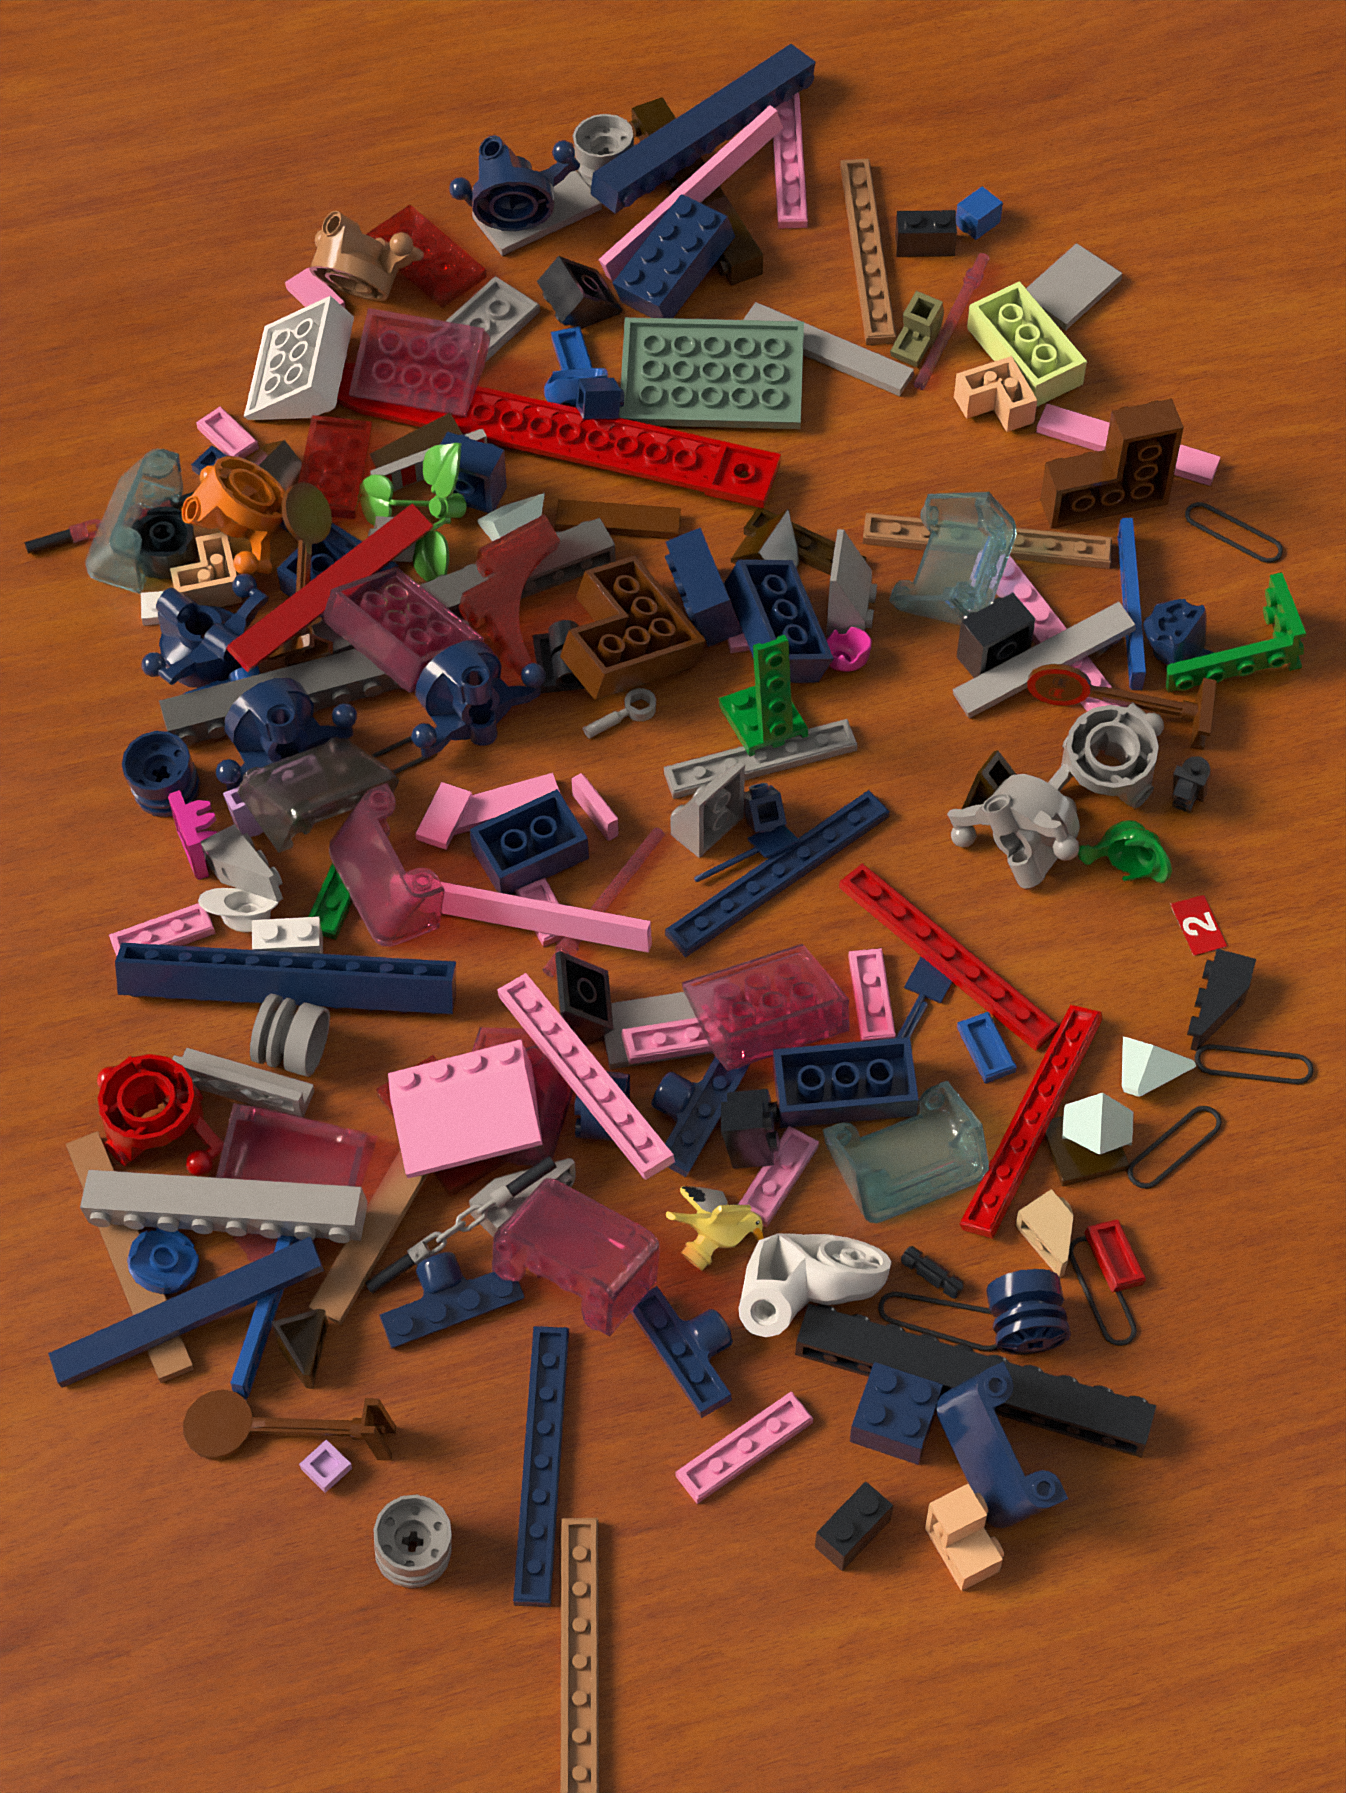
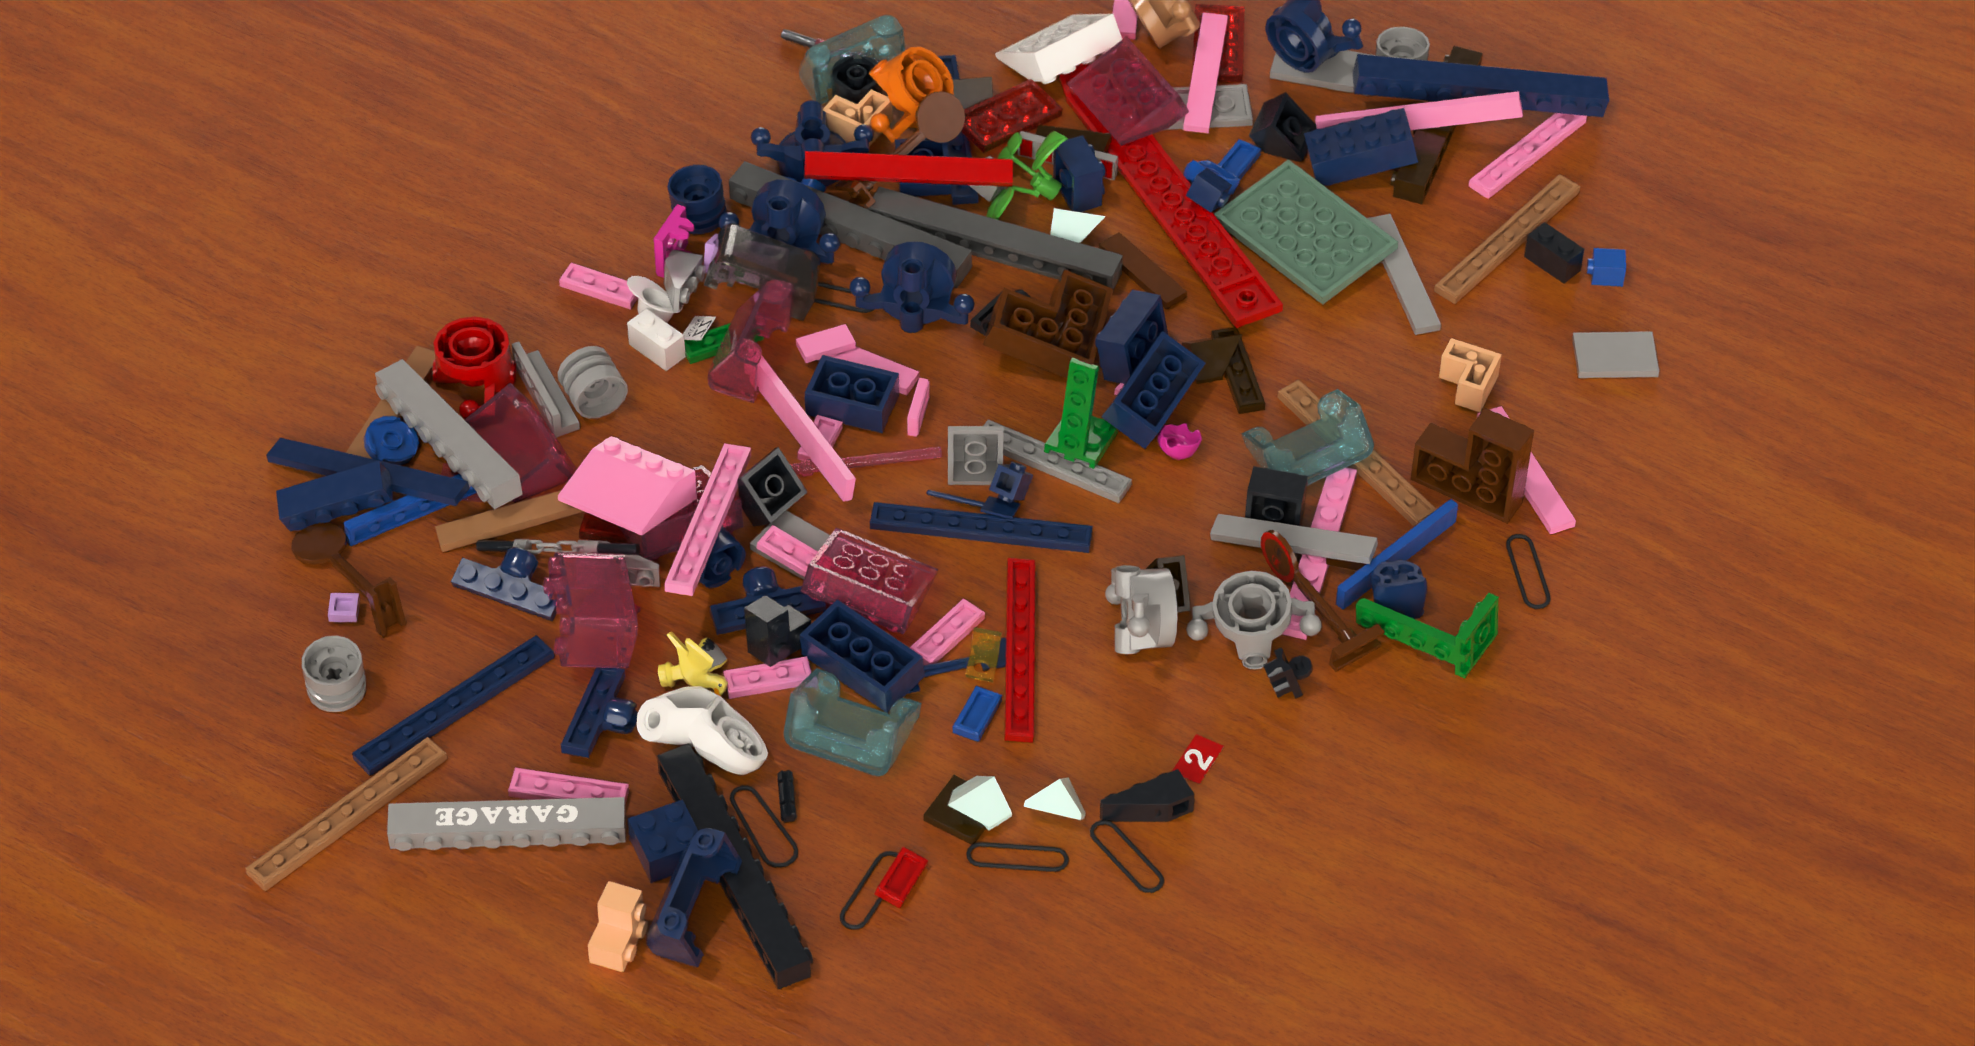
camera: 45 degrees right, 10 degrees down
(192, 1366) = (334, 496): none -> dark blue brick
(227, 434) = (973, 57): bright pink tile -> none
(302, 1341) = (407, 537): dark brown slope -> none
(304, 977) = (632, 355): dark blue brick -> none
(306, 897) = (698, 327): none -> white sticker
(394, 623) = (923, 211): clear pink slope -> none
(460, 294) = (1205, 72): none -> bright pink tile
(497, 600) = (1024, 236): clear red arch -> none
(615, 717) = (1014, 371): light grey piece -> none
(738, 1535) = (506, 823): none -> light grey brick
(849, 588) = (1217, 401): light grey slope -> none
(853, 1526) = (569, 873): black brick -> none
(921, 327) = (1475, 302): olive brick -> none
(929, 984) = (984, 649): none -> clear yellow bracket
(971, 281) = (1552, 303): clear pink bar -> none
(1018, 327) = (1529, 360): yellowish green brick -> none
(1028, 1311) = (803, 852): dark blue wheel -> none
(1031, 1121) = (949, 769): red tile -> none
(1048, 1229) = (880, 830): tan slope -> none
(1132, 851) = (1204, 679): green piece -> none

